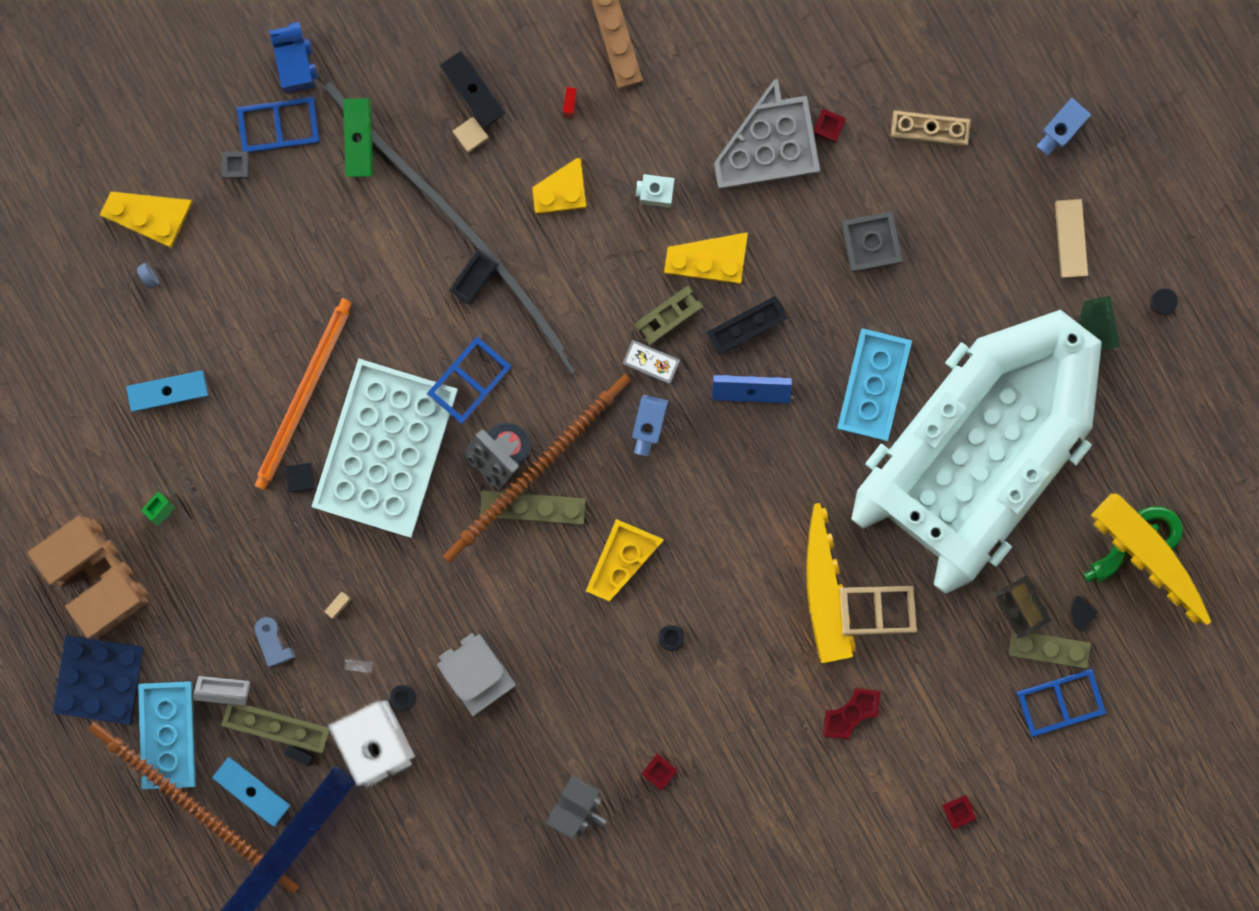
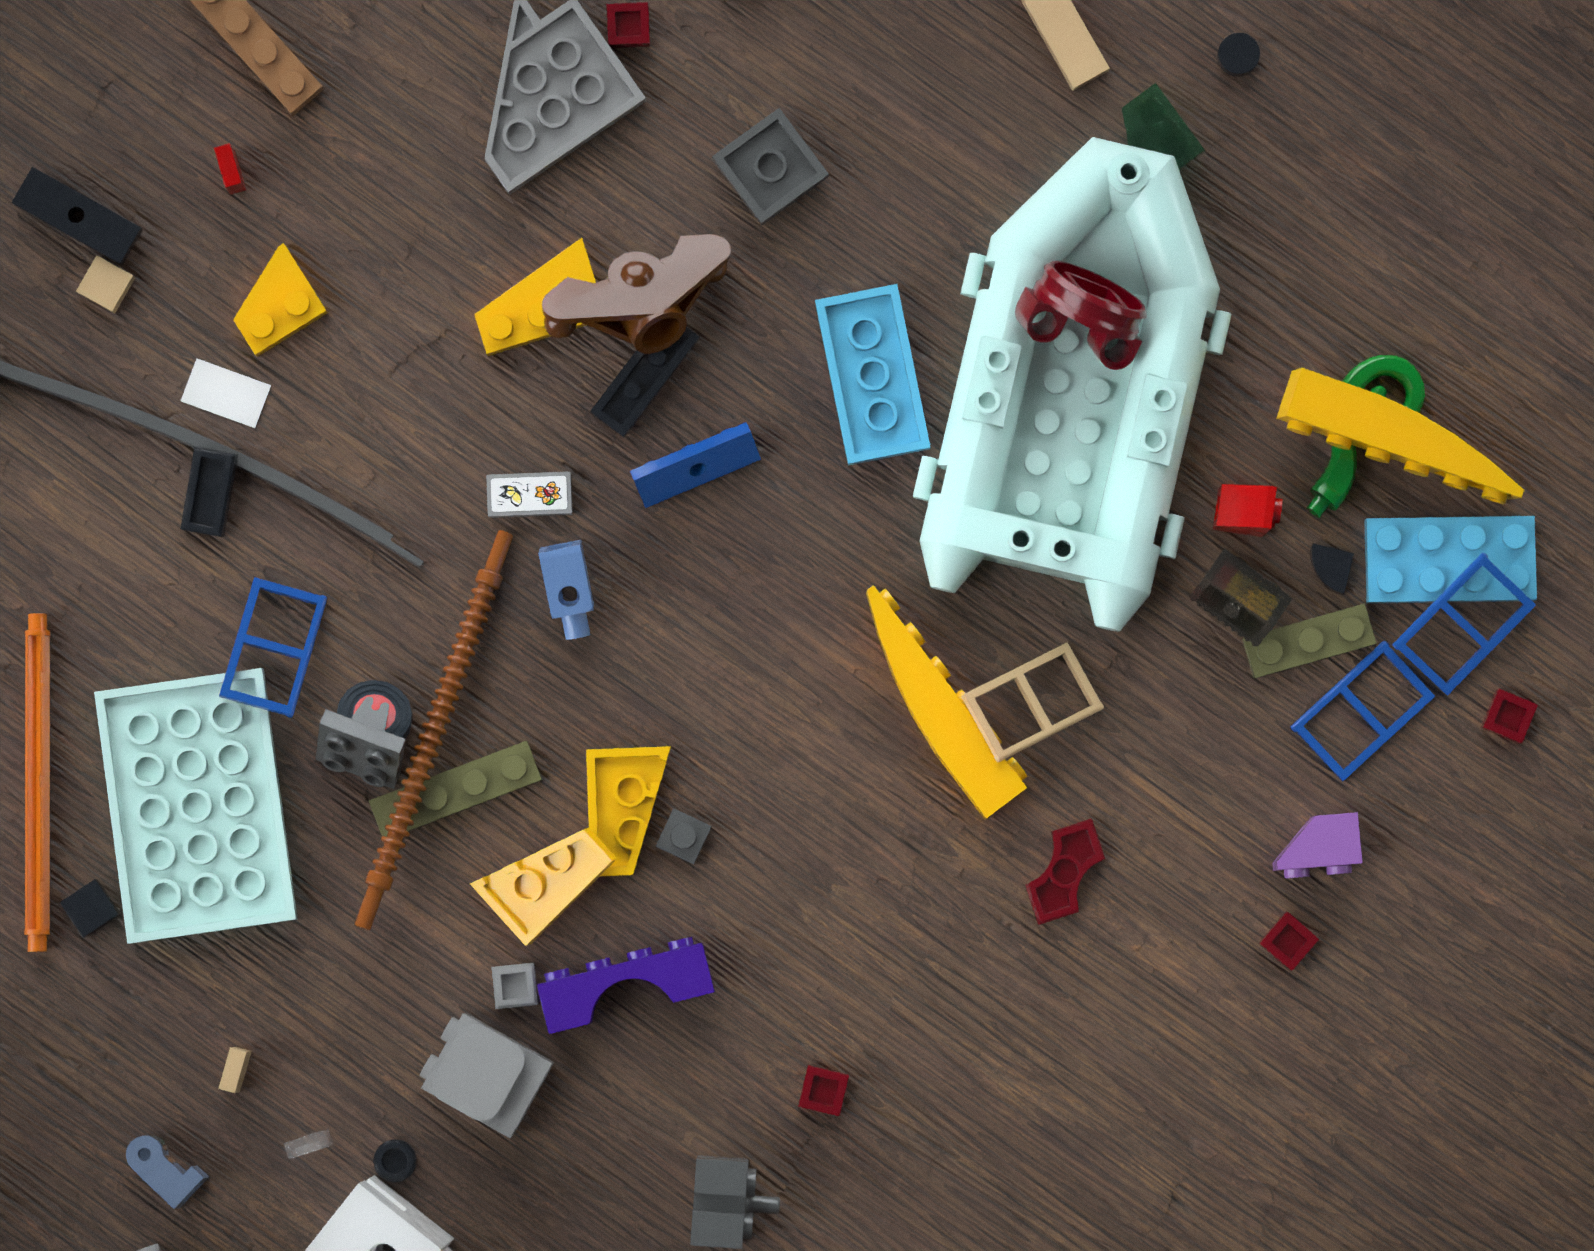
camera: 25 degrees left, 0 degrees up
(508, 226) = (225, 393): none -> white sticker
(514, 632) = (515, 985): none -> light grey tile
(542, 655) = (572, 999): none -> dark purple arch
(558, 583) = (543, 885): none -> yellow wing
(647, 593) = (683, 836): none -> dark grey plate
(655, 190) = (417, 239): light aqua brick -> none
(668, 315) = (523, 414): olive plate -> none
(671, 637) = (748, 885): black tile -> none
(766, 280) = (642, 296): none -> piece
(1003, 765) = (1322, 842): none -> medium lavender slope
(1016, 400) = (1089, 300): none -> dark red piece
(1049, 559) = (1247, 509): none -> red slope
(1142, 744) = (1509, 716): none -> dark red tile
(1148, 699) = (1486, 645): none -> blue window
(1150, 640) = (1423, 556): none -> medium azure plate

